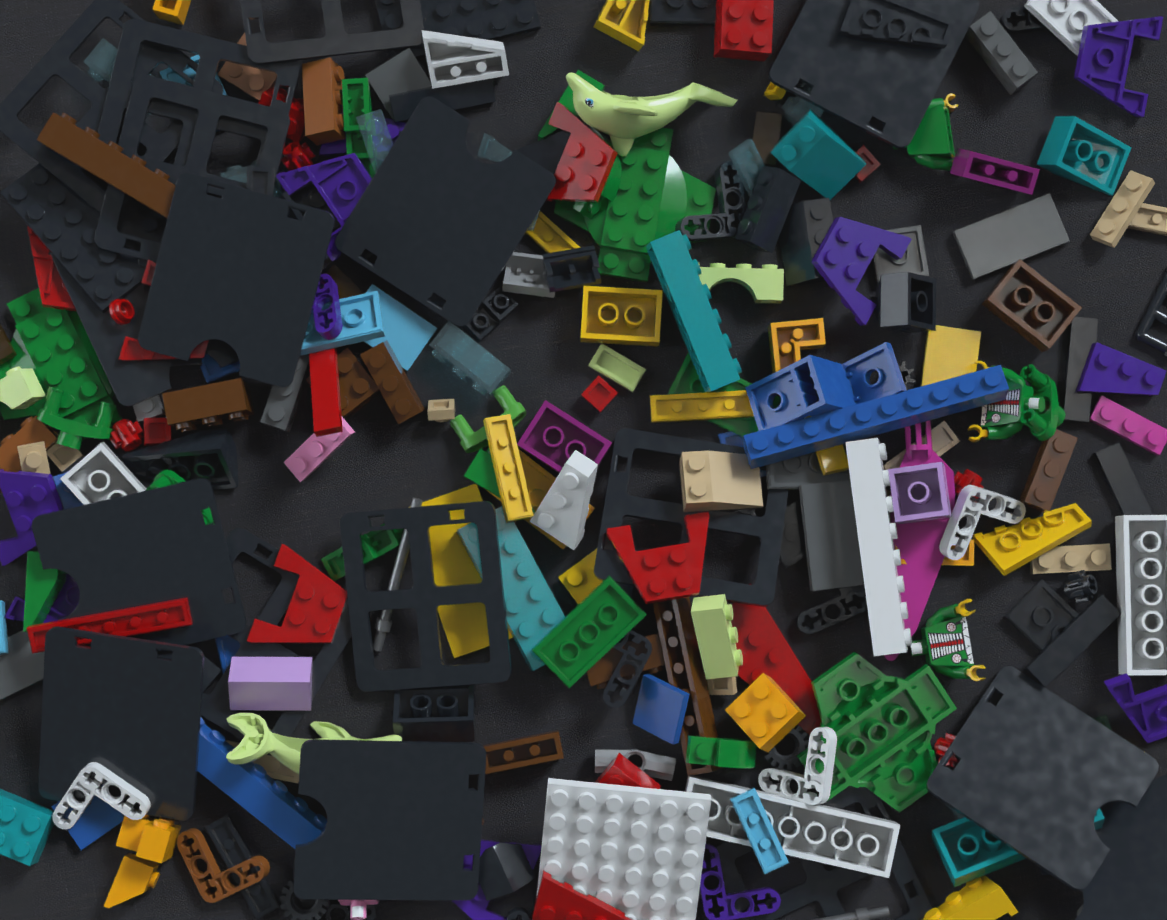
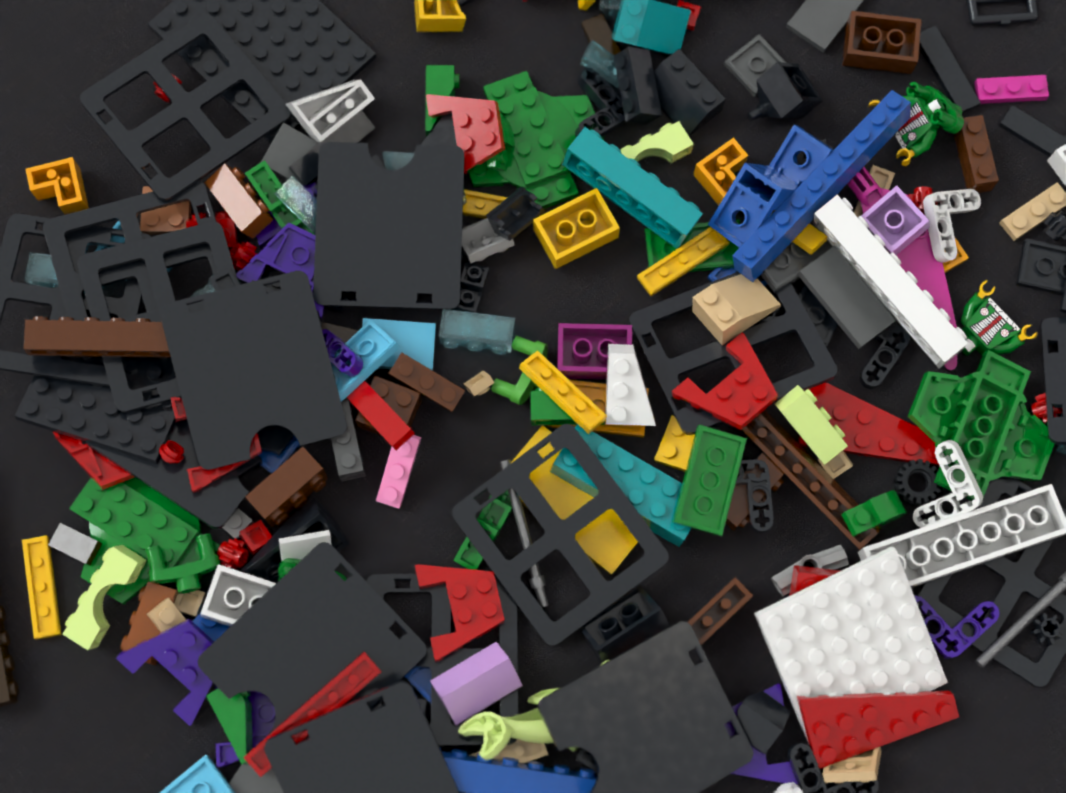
camera: 30 degrees left, 10 degrees down
(192, 467) = (300, 545): none -> white tile
(599, 394) = (596, 299): red plate -> none
(617, 367) = (597, 272): yellowish green tile -> none
(633, 117) = (494, 71): yellowish green animal -> none
(661, 708) = (803, 510): blue tile -> none
(759, 830) = (946, 555): medium azure tile -> none
(765, 712) = (888, 462): light orange brick -> none
(846, 256) = (721, 82): dark purple wing -> none
(949, 354) = (842, 113): yellow tile -> none
(1021, 543) = (998, 211): yellow wing -> none
(1119, 373) = (975, 55): dark purple wing -> none

